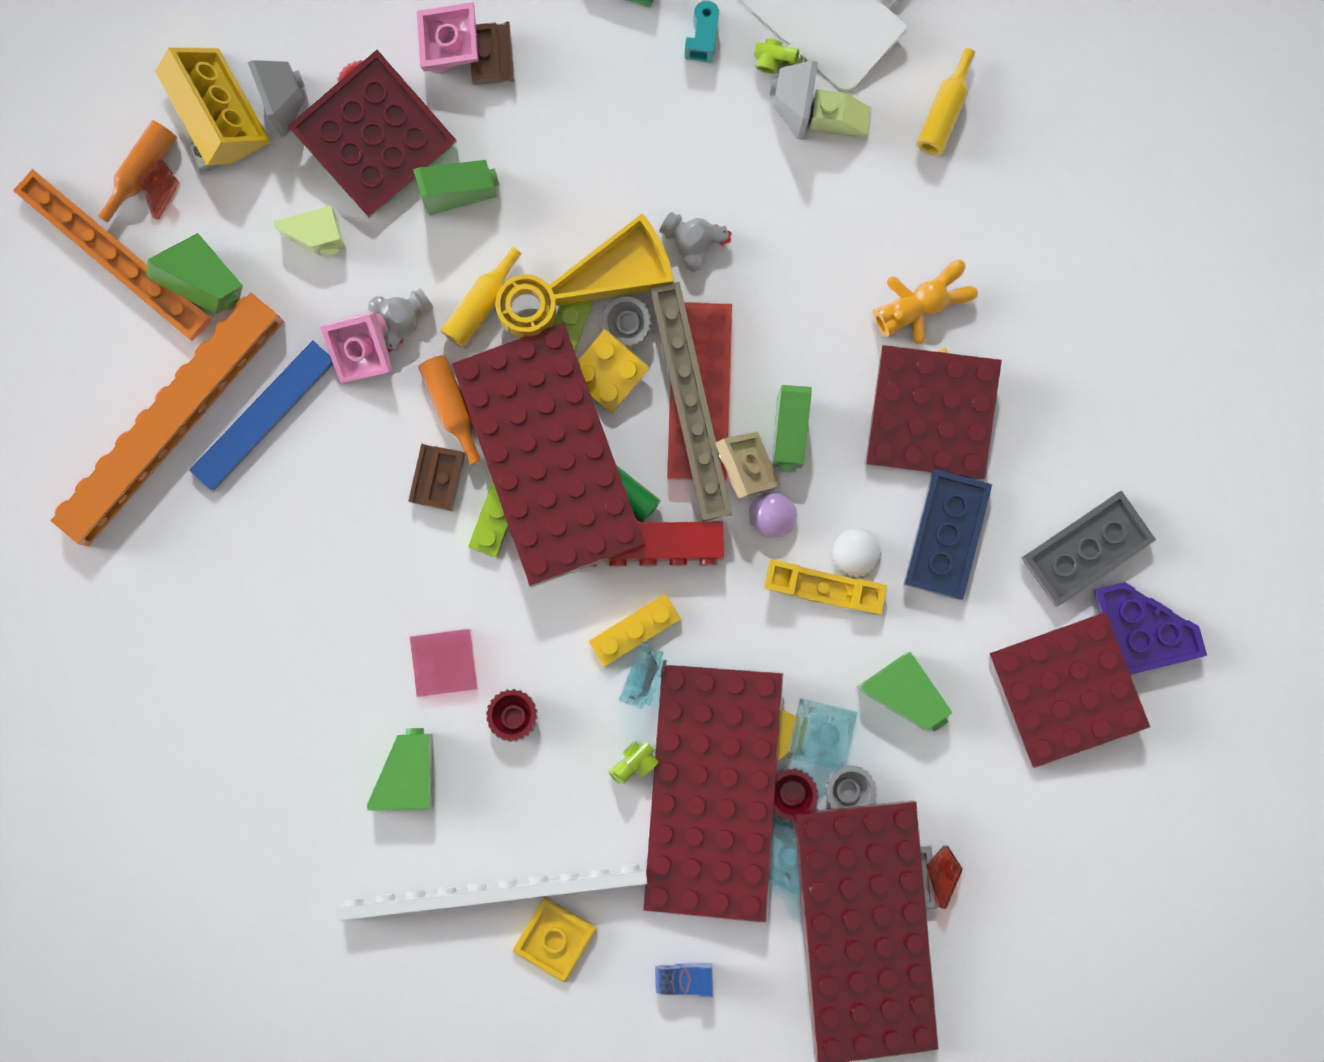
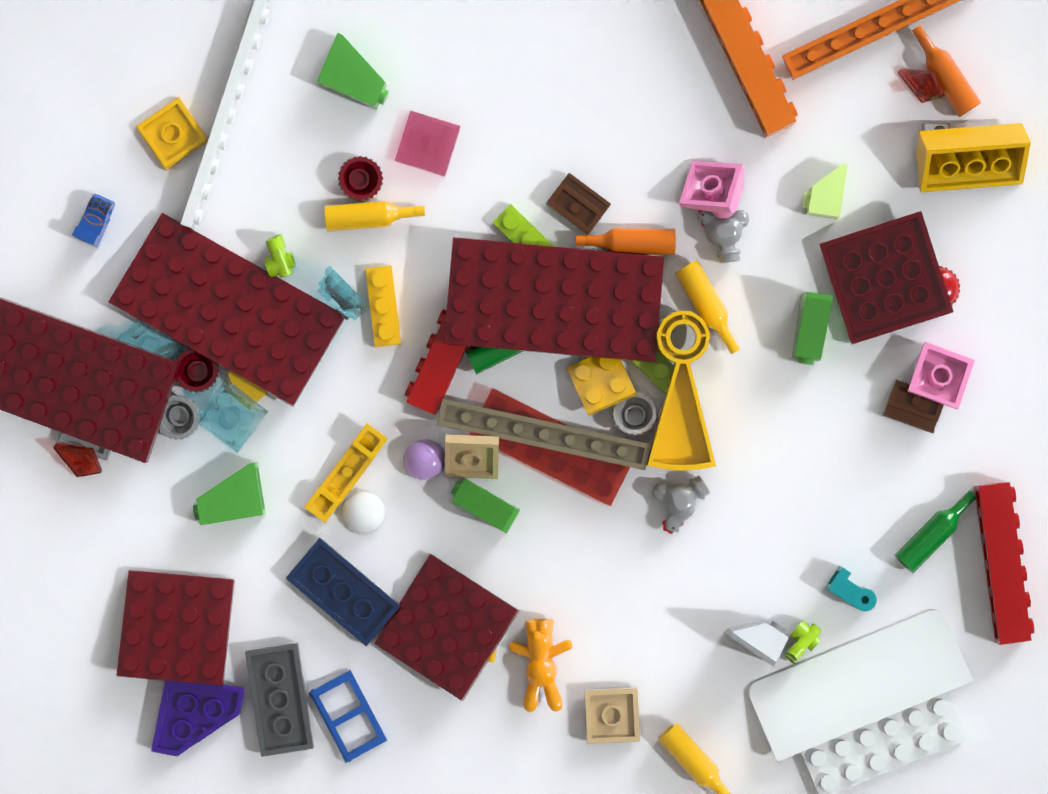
camera: 125 degrees right, 5 degrees up
(196, 274) = (831, 84): bright green slope -> none
(262, 416) = (694, 86): blue tile -> none
(279, 91) = (956, 216): light grey slope -> none
(547, 689) = (367, 215): none -> yellow piece
(839, 114) = (729, 671): yellowish green slope -> none
(940, 208) = (612, 715): none -> tan plate
(1093, 440) = (347, 756): none -> blue window

